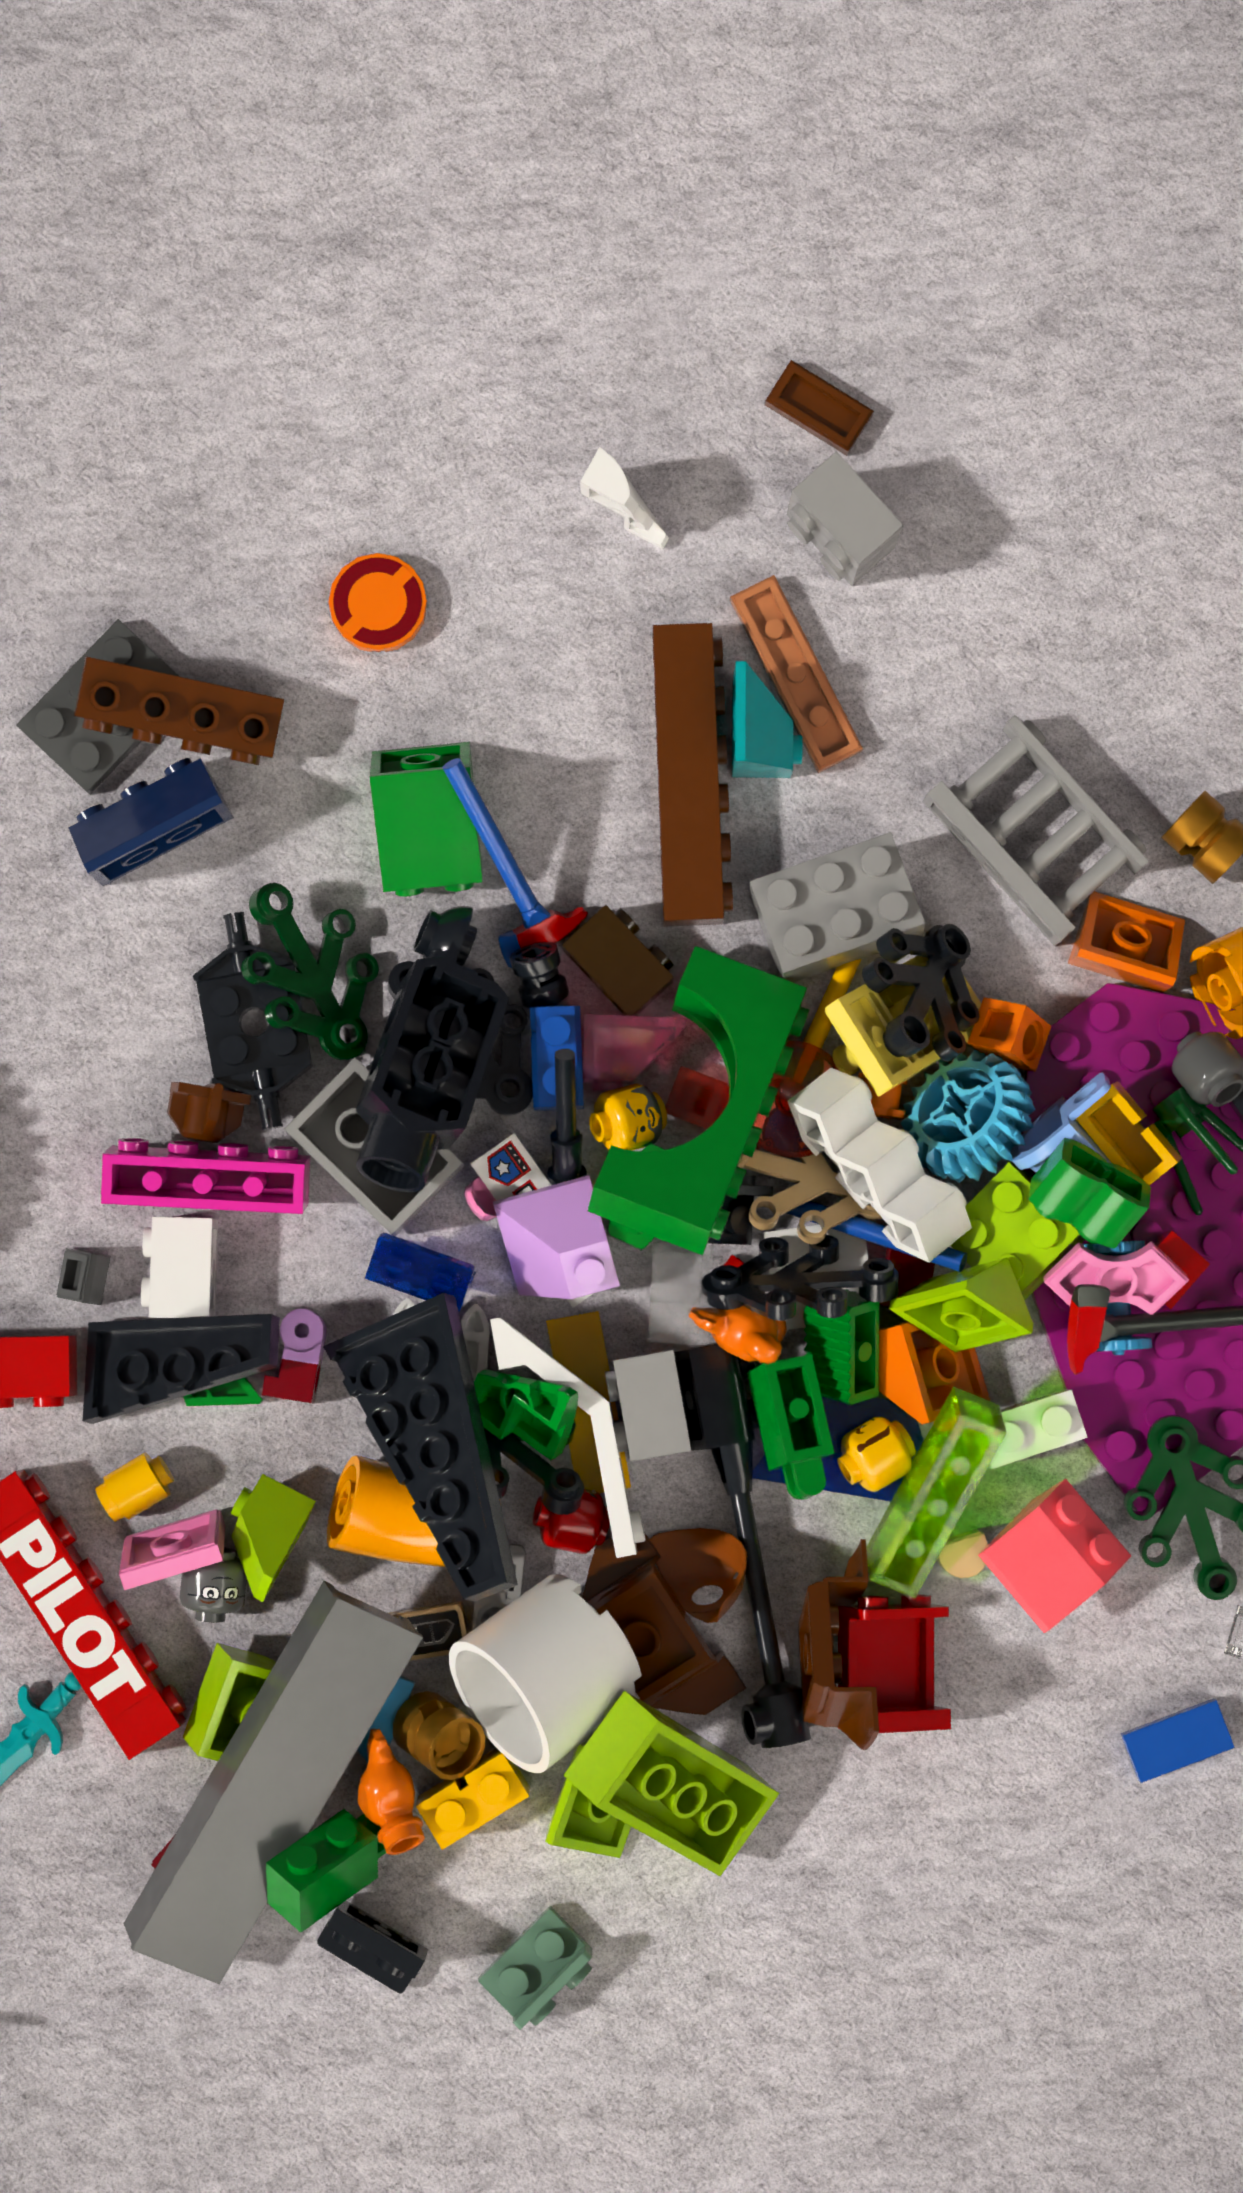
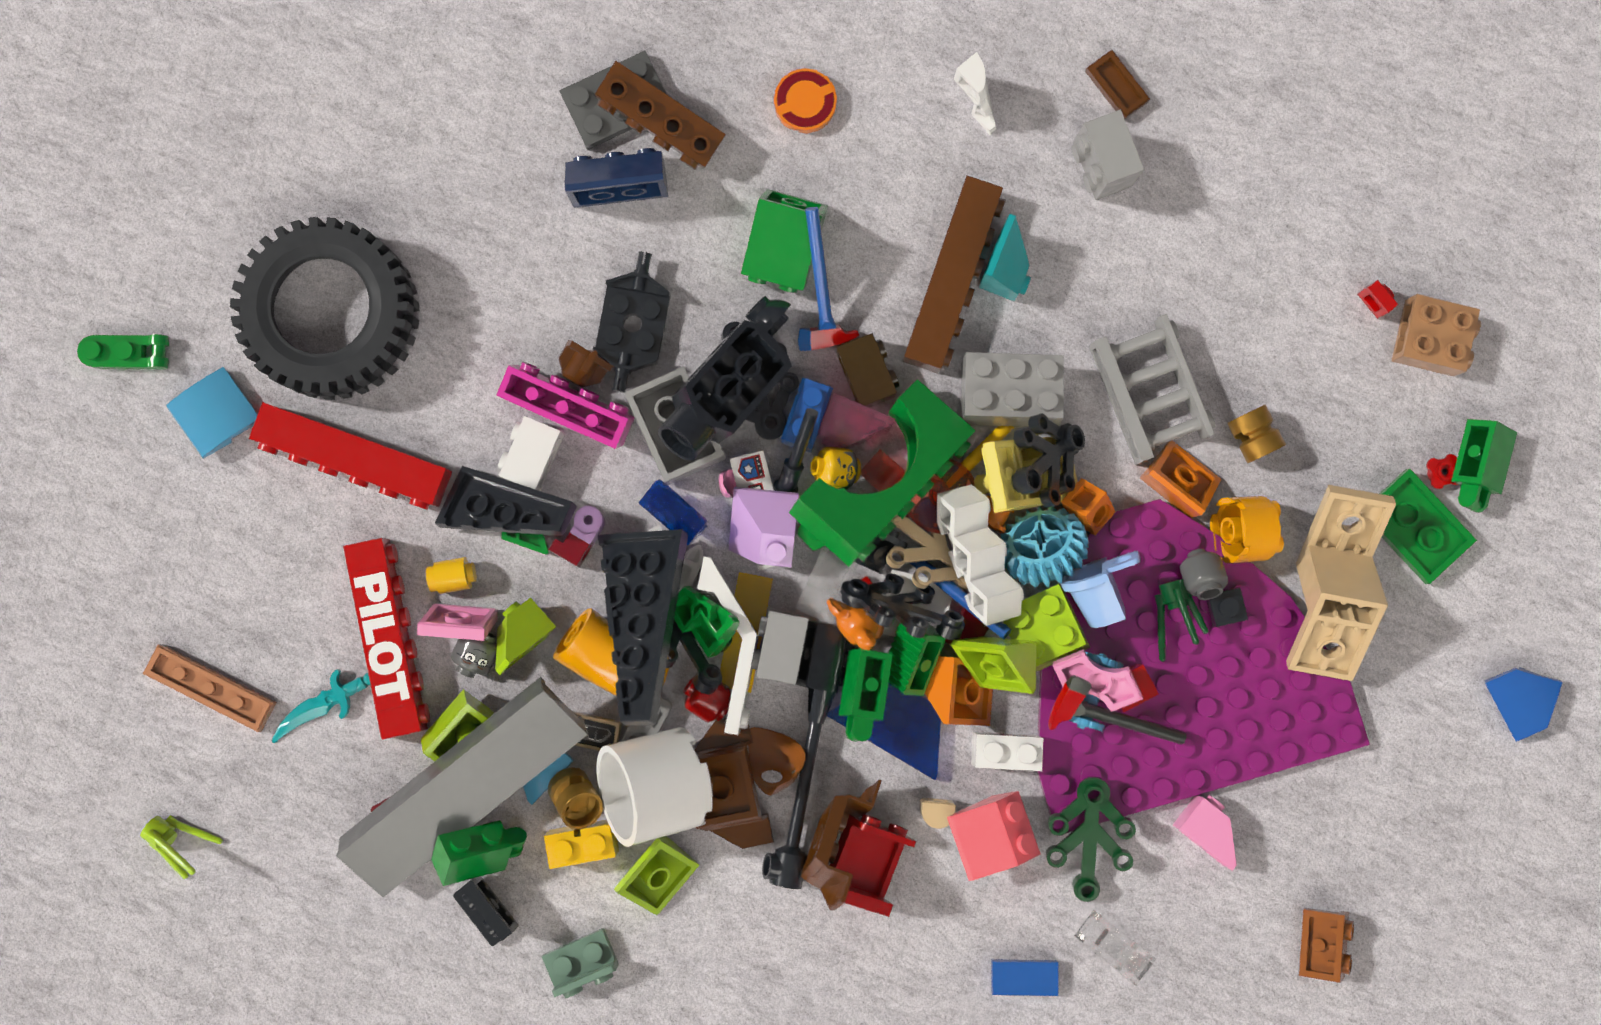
camera: 20 degrees right, 0 degrees up
(83, 1276) = (470, 437): dark grey slope -> none
(313, 978) = (677, 309): dark green plant -> none
(388, 1797) = (529, 824): orange animal -> none
(539, 975) = (815, 360): black wheel -> none
(671, 1784) = (703, 884): lime brick -> none
(796, 673) = (1041, 239): nougat tile -> none
(876, 1454) = (908, 730): yellow head -> none
(935, 1492) = (935, 768): clear neon green brick -> none
(1089, 1193) = (1102, 622): green brick -> none
(1117, 1131) = (1138, 607): yellow piece -> none

